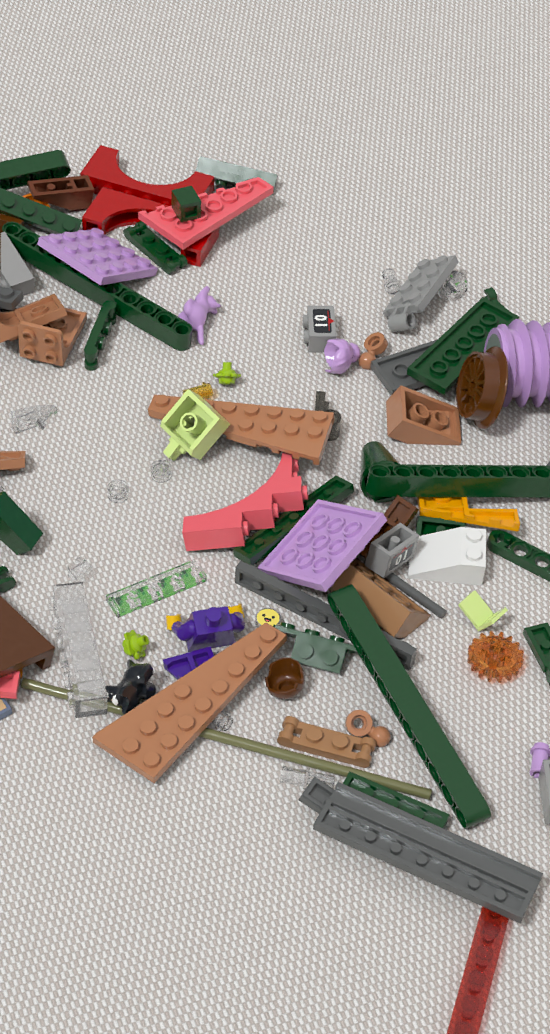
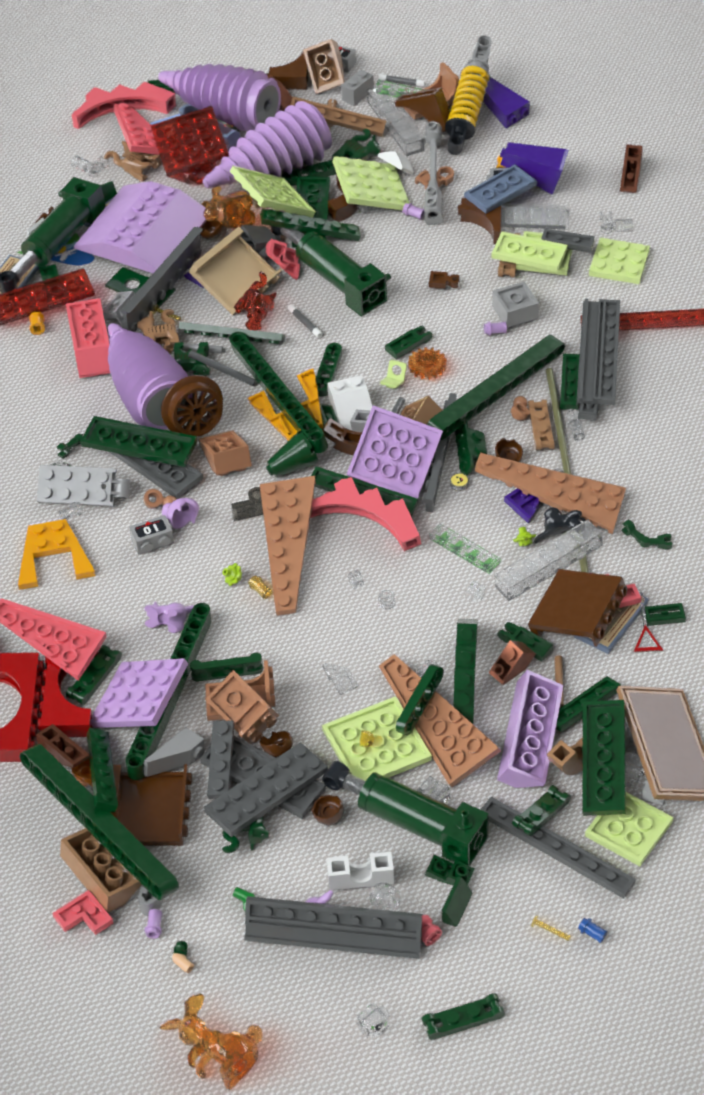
camera: 105 degrees left, 0 degrees up
(88, 761) = (645, 541): none -> dark green piece
(186, 204) = (63, 636): dark green panel -> none
(192, 426) = (314, 560): yellowish green hinge -> none
(208, 627) = (491, 497): dark purple torso -> none
(359, 258) = (47, 540): none -> light orange wing

